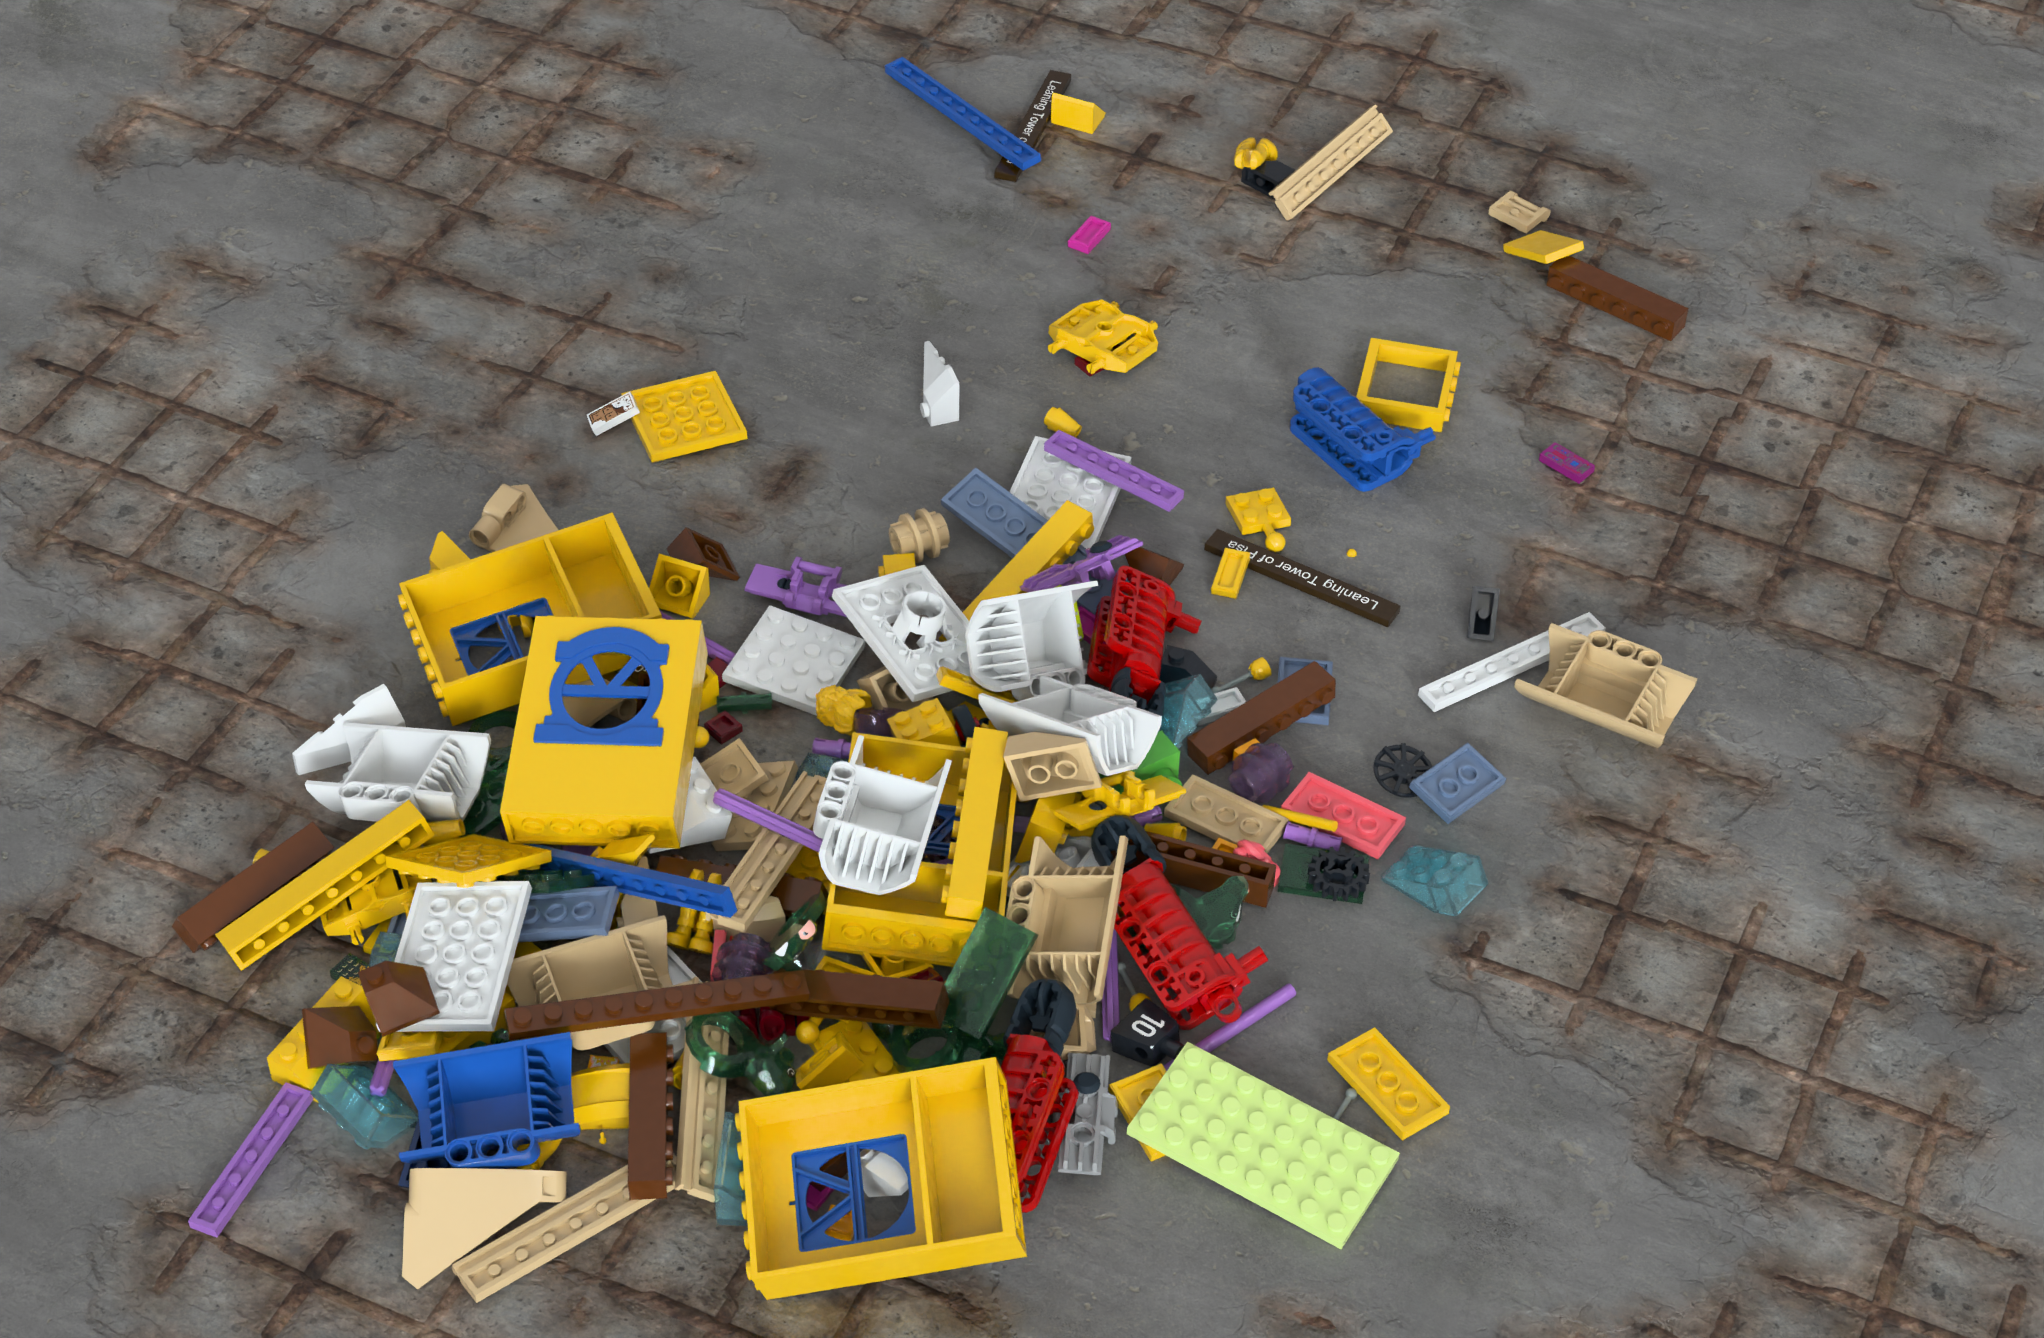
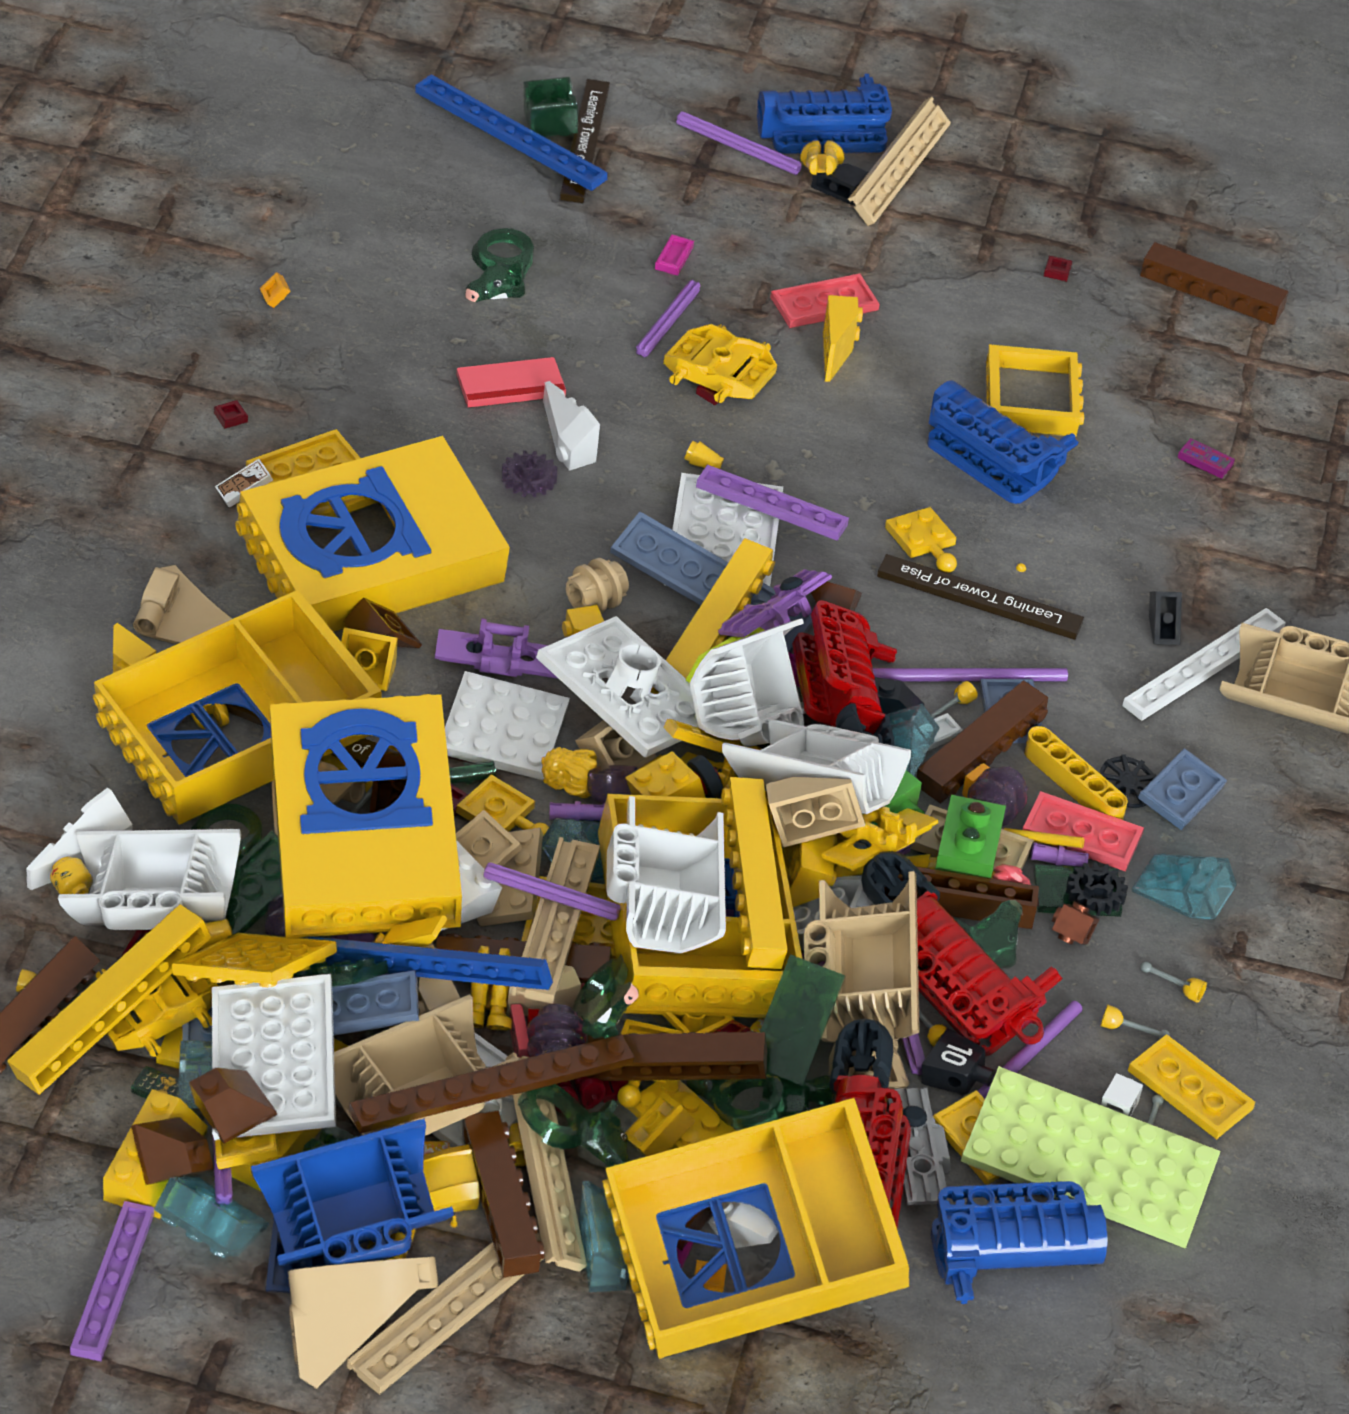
camera: 15 degrees left, 0 degrees up
(332, 764) = (71, 876): none -> yellow head
(623, 350) = (230, 414): none -> dark red tile
(697, 240) = (275, 290): none -> light orange plate
(766, 737) = (502, 803): none -> yellow plate
(771, 489) = (439, 544): none -> yellow panel
(888, 426) = (529, 473): none -> clear purple gear
(895, 339) = (508, 381): none -> coral tile
(916, 241) = (501, 275): none -> clear green animal
(1004, 91) = (550, 106): none -> clear green piece
(1065, 292) = (668, 318): none -> medium lavender axle
(1075, 113) = (626, 125): yellow slope -> none
(1159, 1212) = (1014, 1232): none -> blue piece
(1180, 136) = (739, 143): none -> medium lavender axle
(1218, 810) = (970, 837): none -> bright green piece
(1224, 286) = (808, 302): none -> coral tile
(1225, 316) = (839, 332): none -> yellow slope
(1230, 573) = (911, 598): yellow tile -> none
(1267, 651) = (970, 674): none -> medium lavender piece
(1287, 120) = (826, 116): none -> blue piece
(1308, 906) = (1074, 923): none -> copper brick
(1311, 1085) = (1122, 1095): none -> white brick
(1325, 1005) = (1113, 1019): none -> hinge
(1348, 757) = (1073, 773): none -> yellow beam
(1416, 983) = (1192, 988): none -> hinge
(1464, 272) = (1058, 268): none -> dark red tile
(1518, 212) = (1096, 201): tan plate -> none
(1543, 246) = (1132, 236): yellow tile -> none

